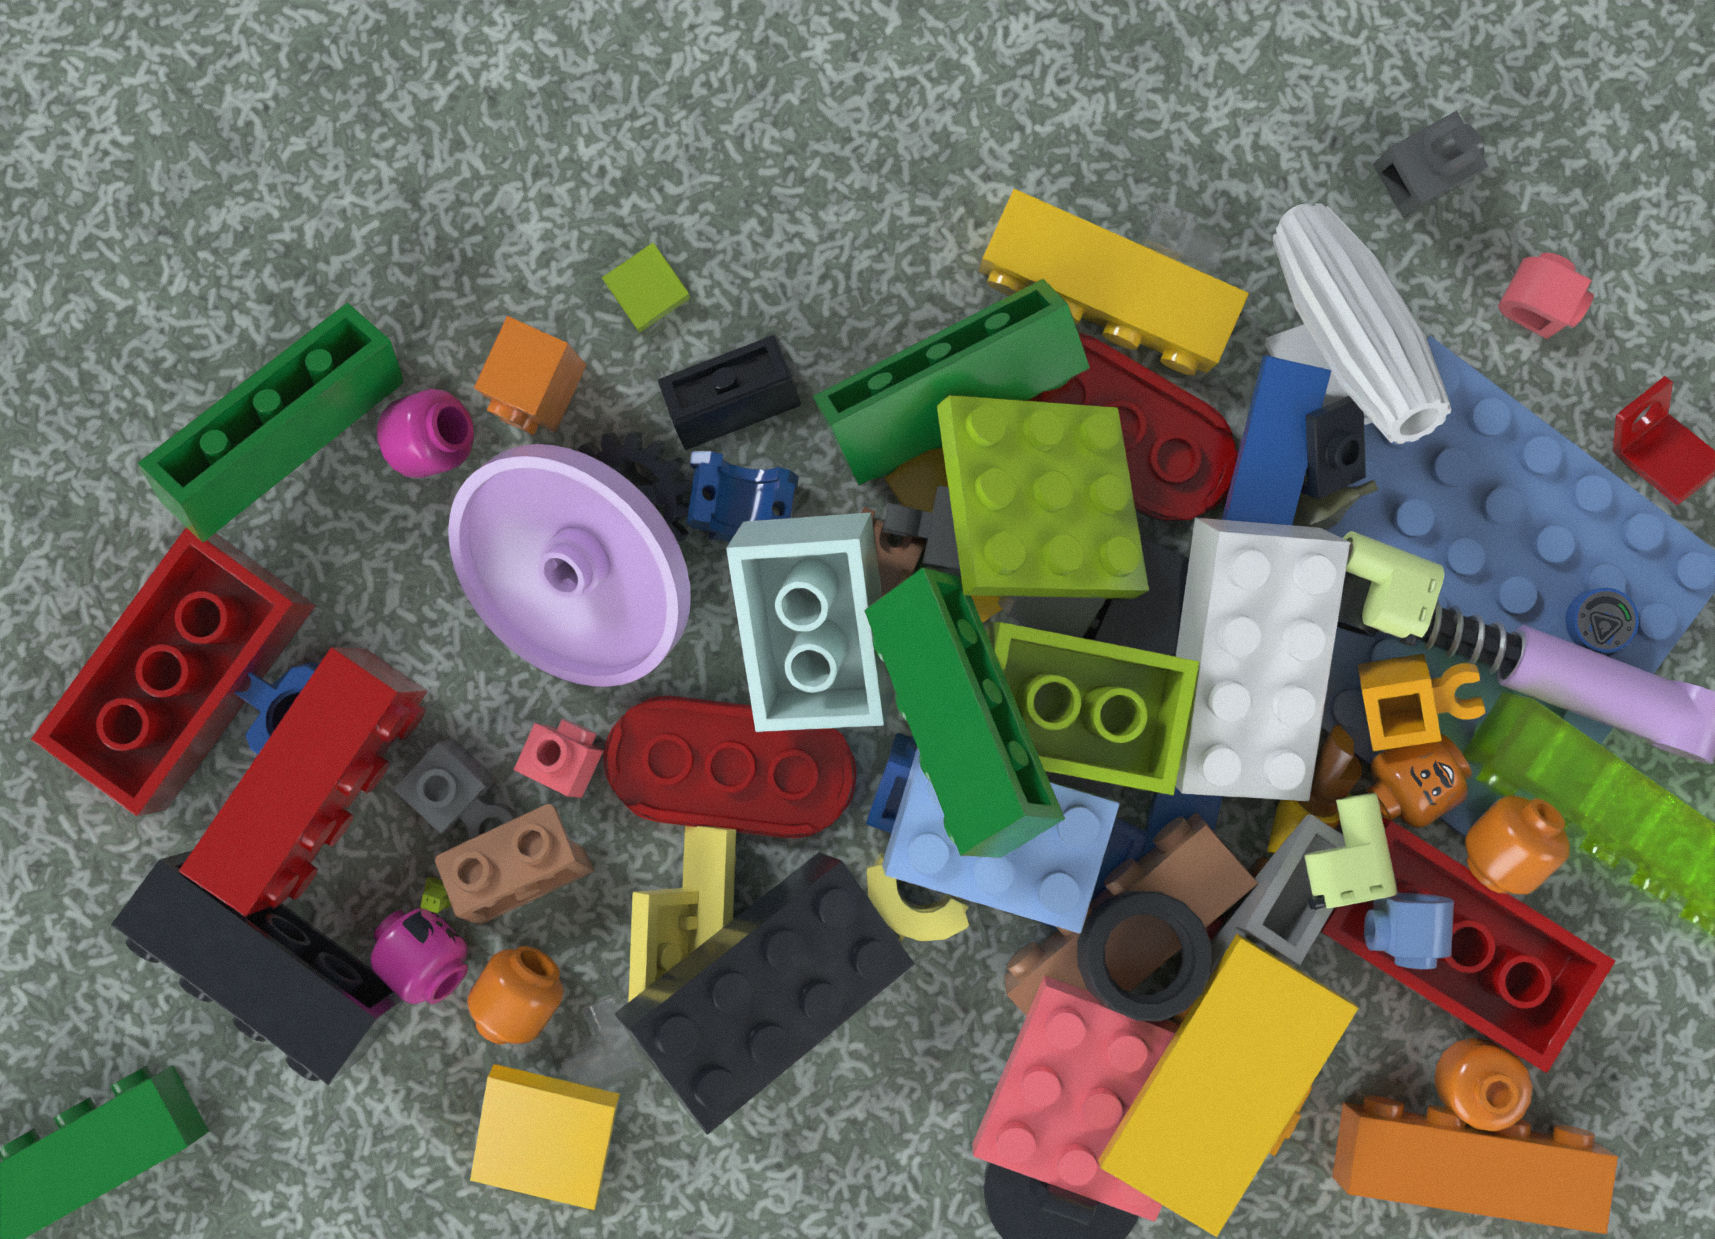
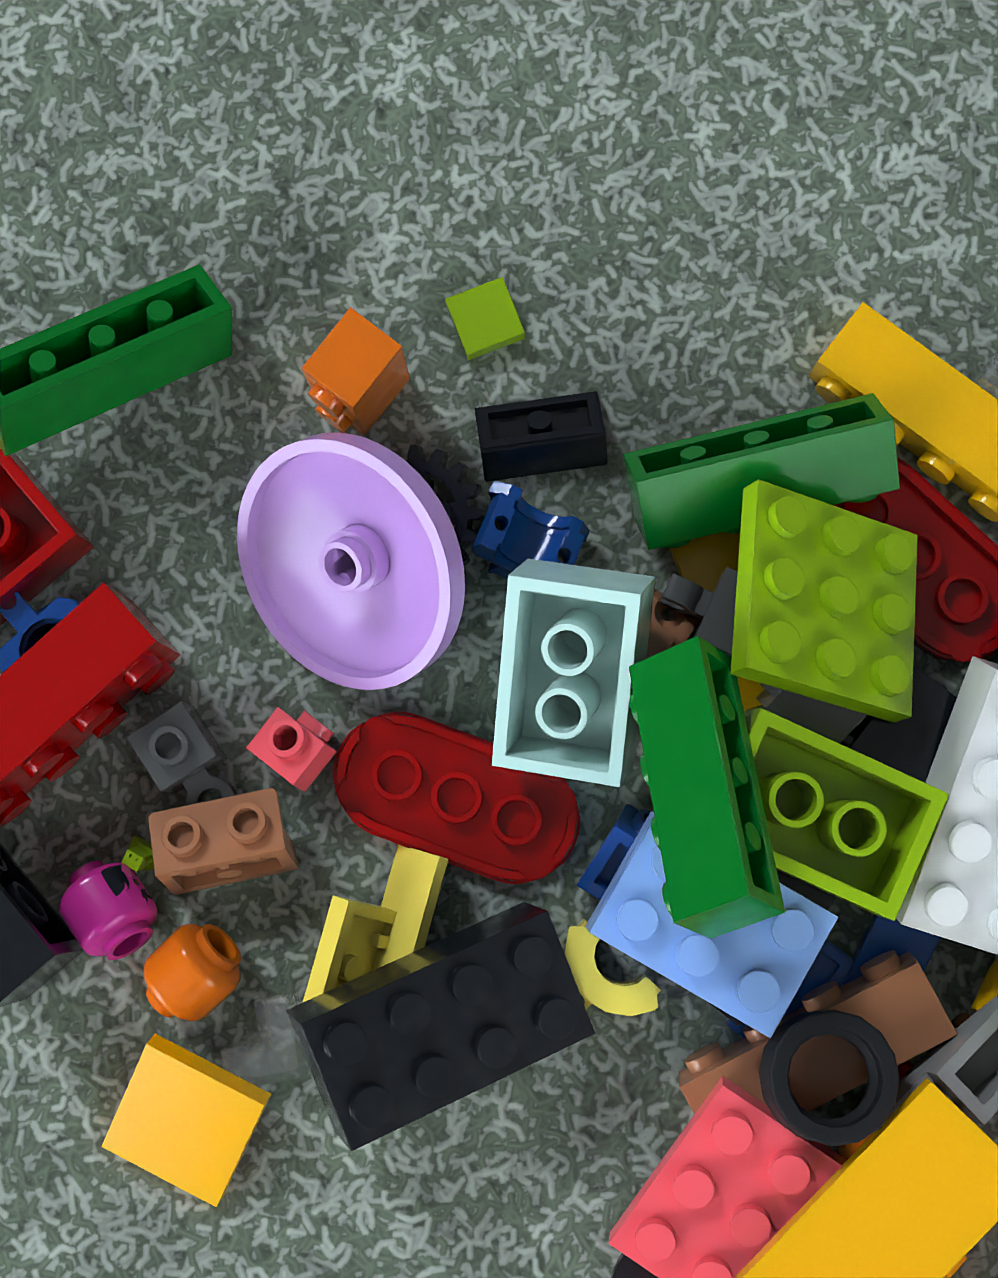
camera: 25 degrees right, 5 degrees down
(425, 433) = (241, 406): dark pink head -> none

